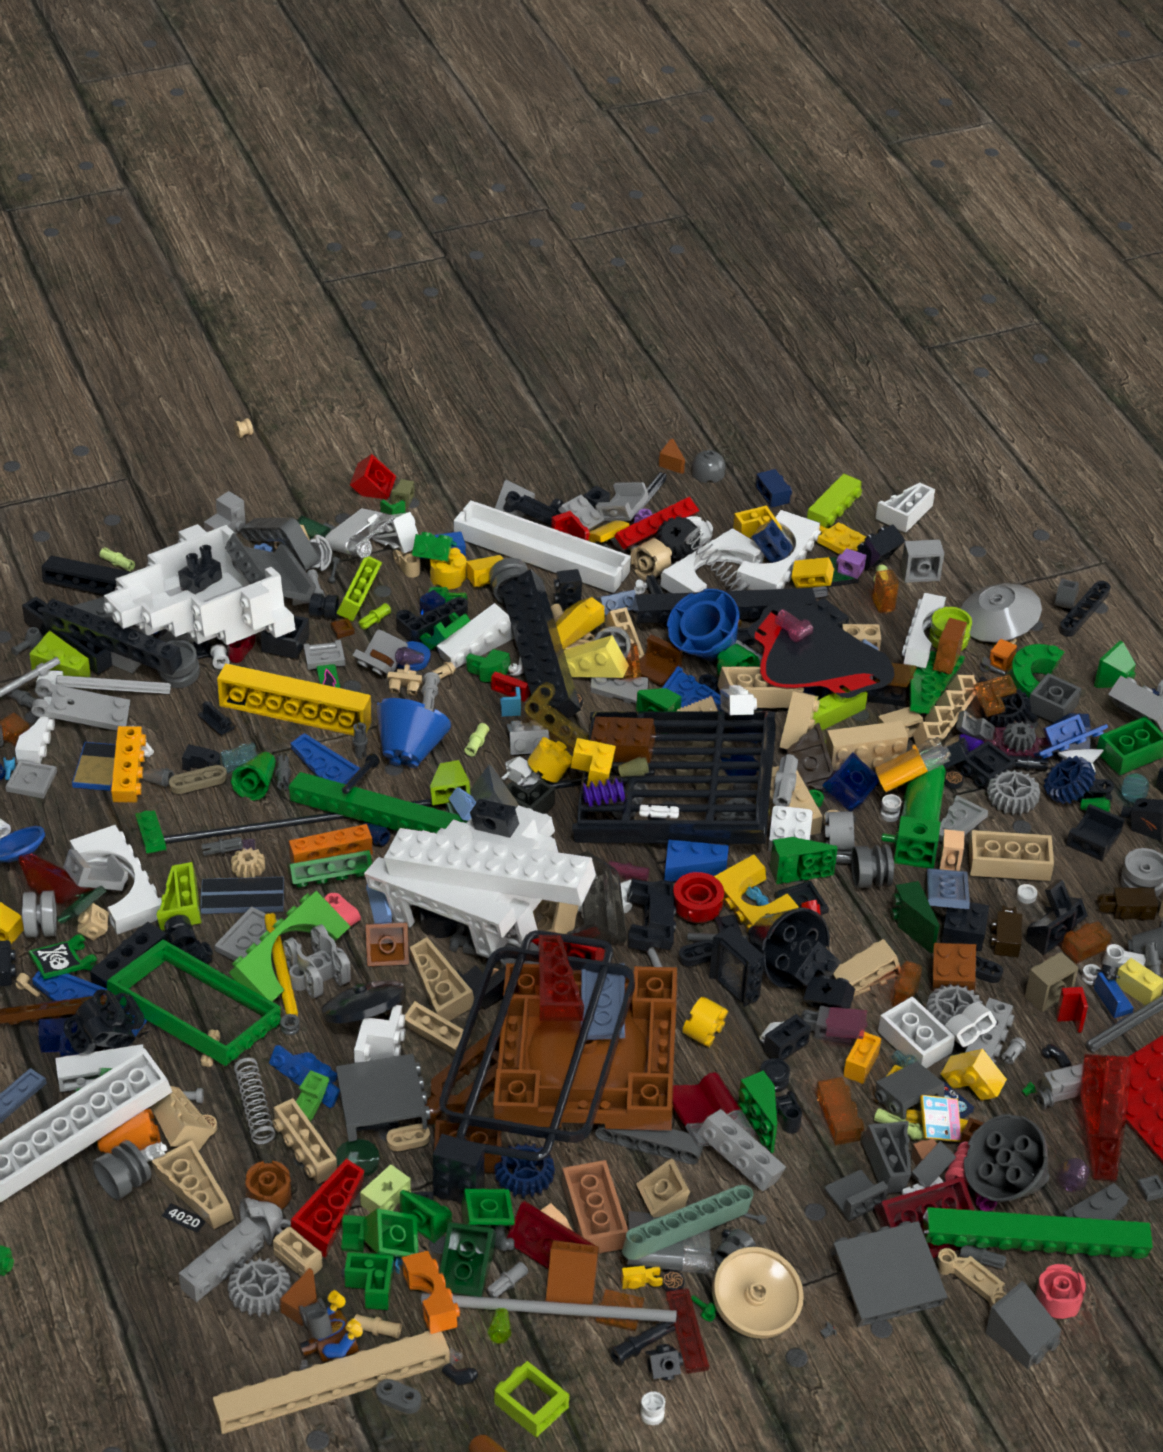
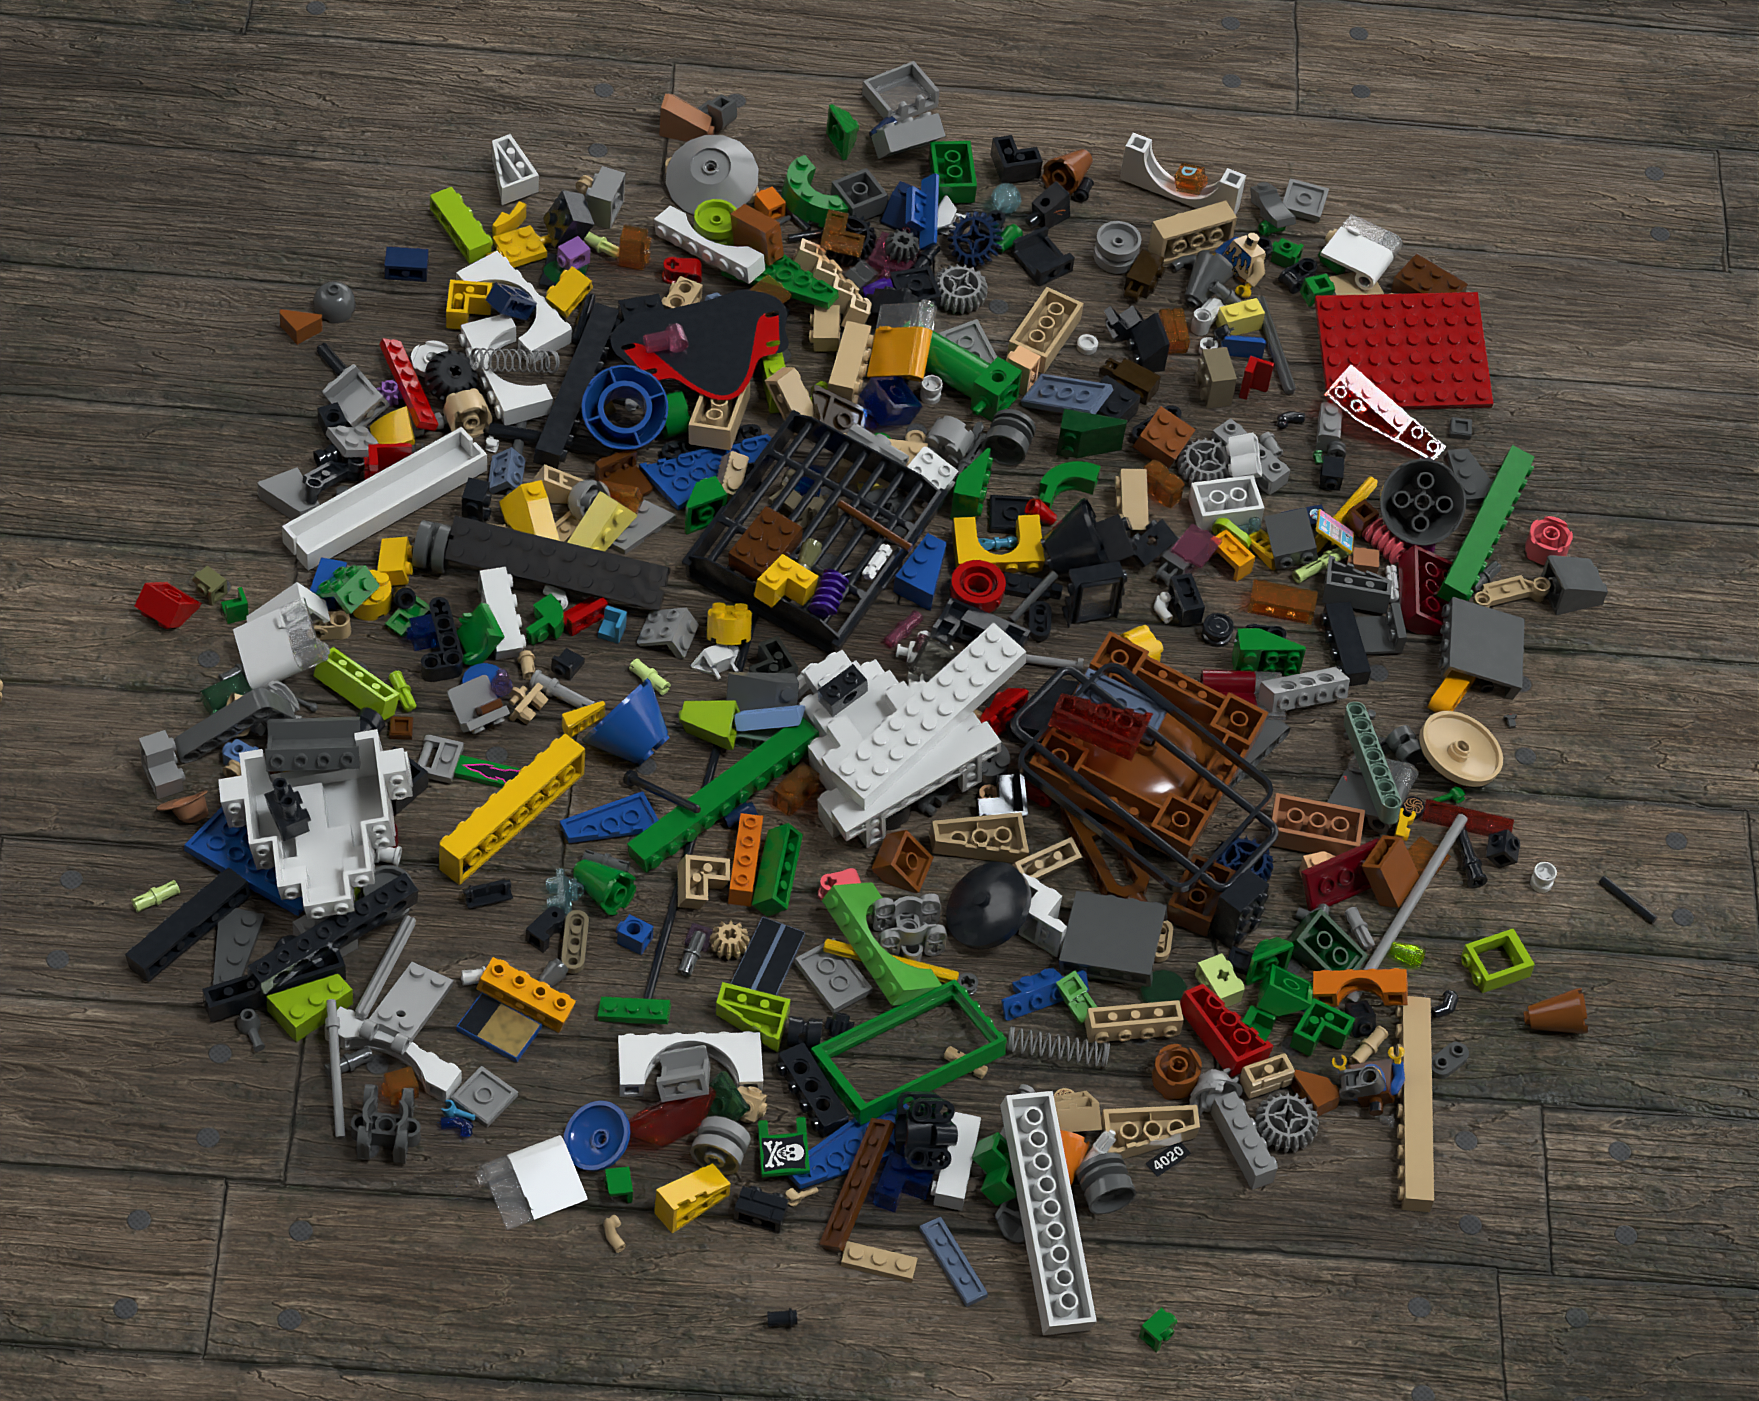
camera: 70 degrees left, 10 degrees up
(222, 809) = (637, 942): none -> blue brick
(289, 820) = (699, 874): none -> tan brick
(360, 740) = (608, 778): dark grey pin -> none
(379, 906) = (835, 847): light blue slope -> none
(405, 1308) = (1364, 1018): none -> black bracket
(456, 584) = (404, 597): none -> black cone
(458, 693) = (567, 664): none -> black bracket
(487, 1207) = (1289, 908): green slope -> none
(560, 720) = (665, 598): clear yellow beam -> none
(664, 1190) = (1320, 766): tan slope -> none
(690, 795) = (875, 526): none -> reddish brown bar
(737, 701) = (769, 431): white brick -> none
(820, 1269) = (1451, 692): none -> light orange beam
(829, 1166) = (1345, 642): none -> black brick
(859, 918) = (1068, 476): none -> green arch
(862, 525) = (507, 222): none -> yellow slope
(886, 1059) = (1223, 523): none -> lime plate
(892, 628) = (685, 267): none -> red piece
(933, 1165) = (1384, 560): dark grey tile -> none
(976, 1071) = (1291, 483): yellow brick -> none
(1014, 1101) = (1331, 473): none -> black brick
(1042, 575) = (682, 120): none -> nougat slope
(1086, 602) = (744, 116): black beam -> none

